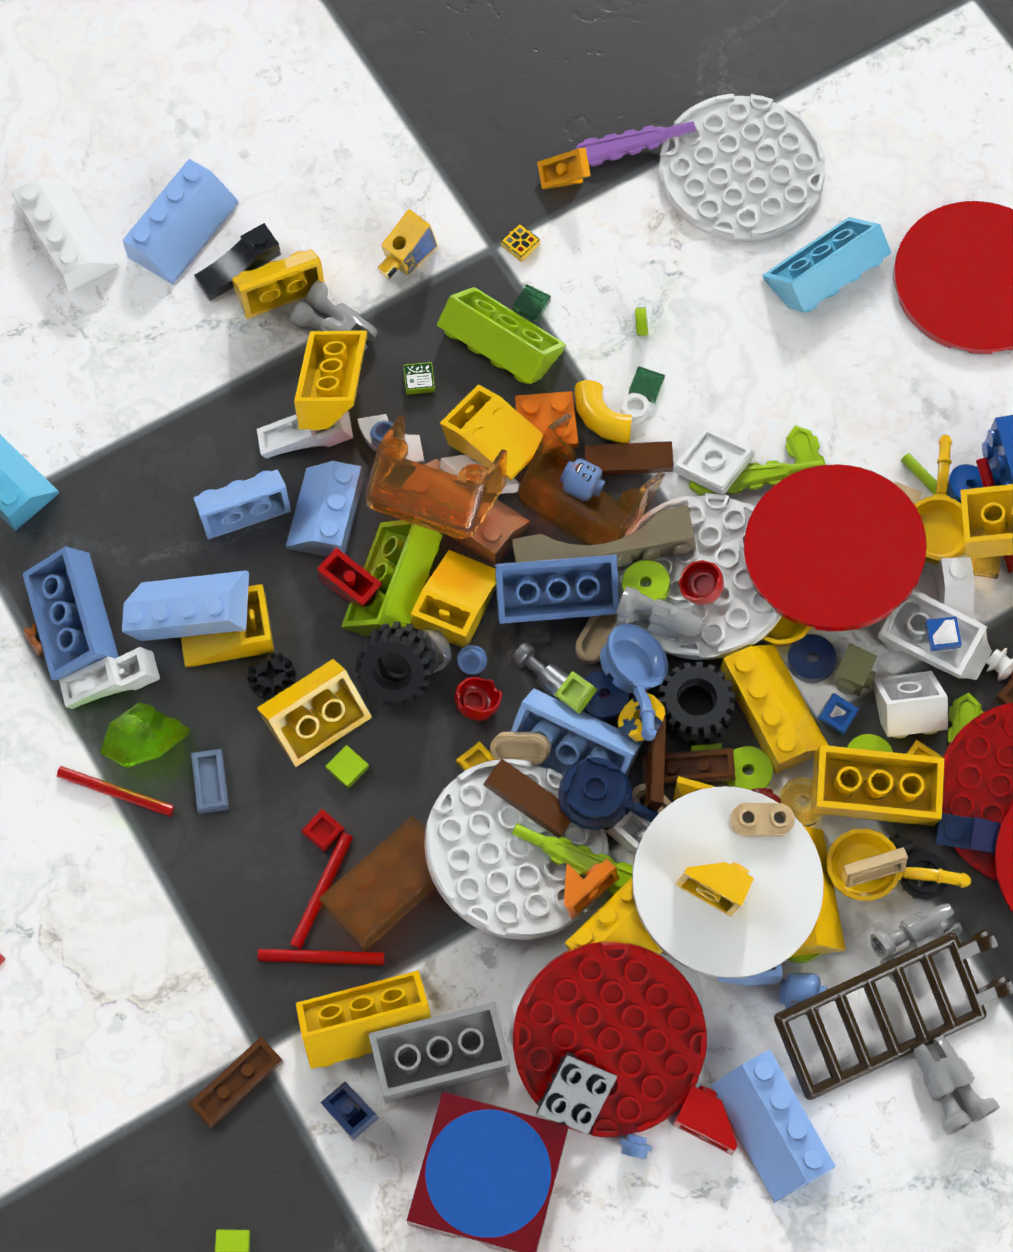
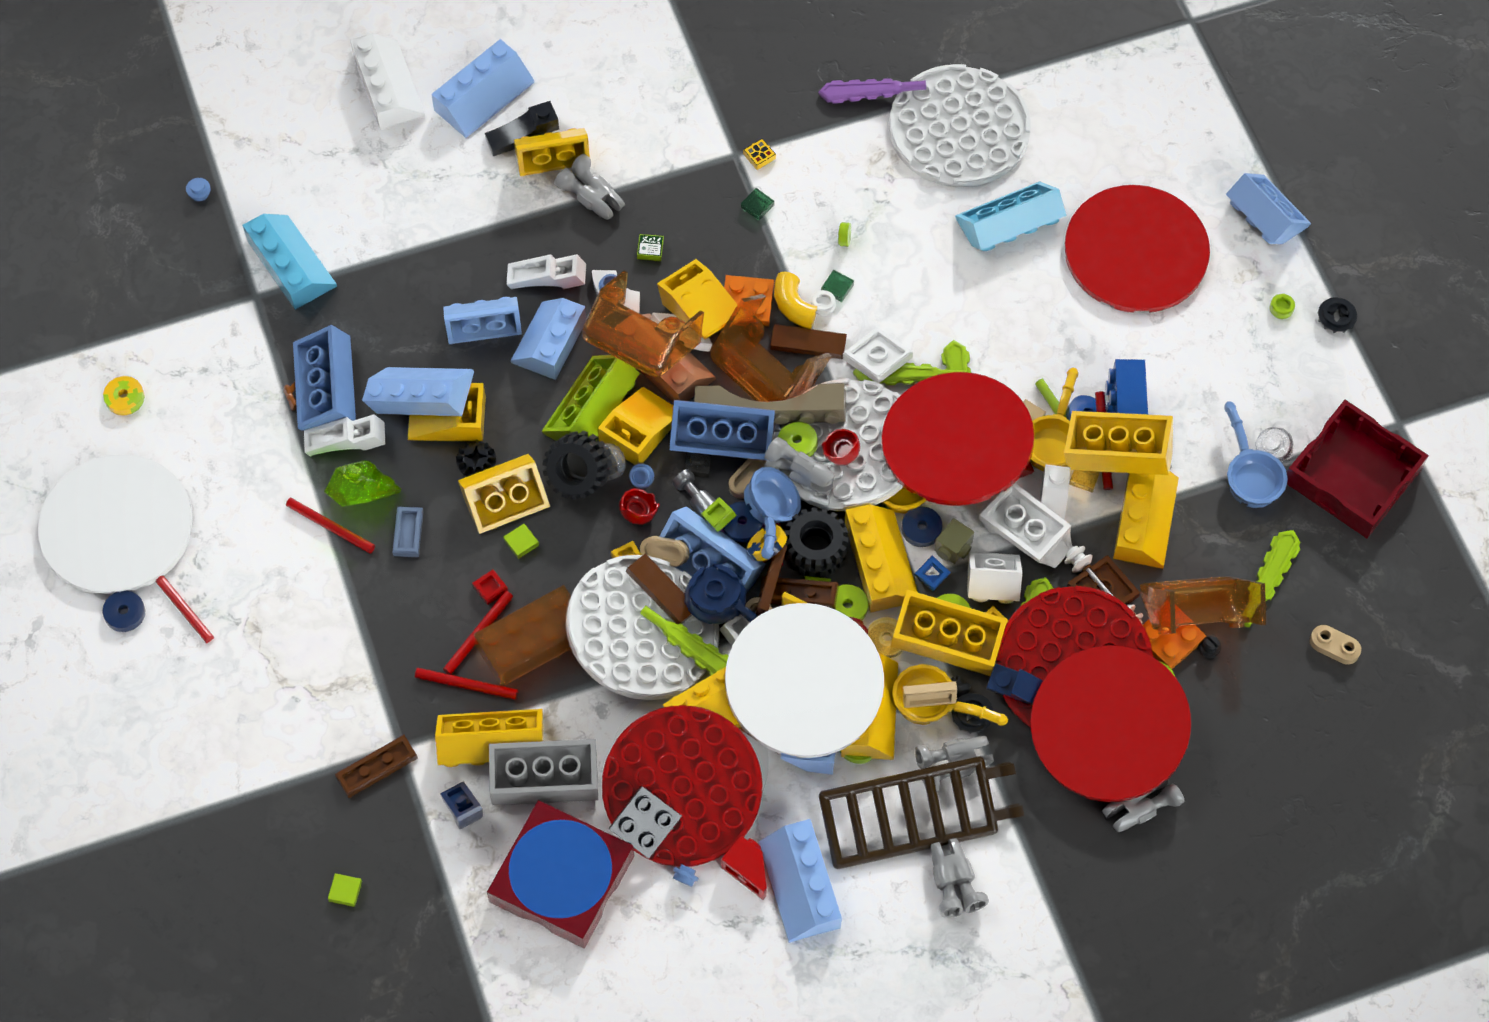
camera: 10 degrees right, 5 degrees down
(328, 377) = (572, 230): yellow slope -> none
(347, 578) = (553, 392): red slope -> none
(407, 245) = (664, 139): yellow torso -> none
(500, 335) = (724, 224): lime slope -> none
(564, 169) = (808, 101): light orange slope -> none
(582, 479) = (764, 350): medium blue head -> none
(582, 892) = (687, 668): orange slope -> none
(717, 884) = (792, 676): yellow slope -> none
(763, 820) = (843, 635): tan plate -> none
(799, 987) = (846, 776): medium blue head -> none
(943, 633) = (1032, 523): tile -> none

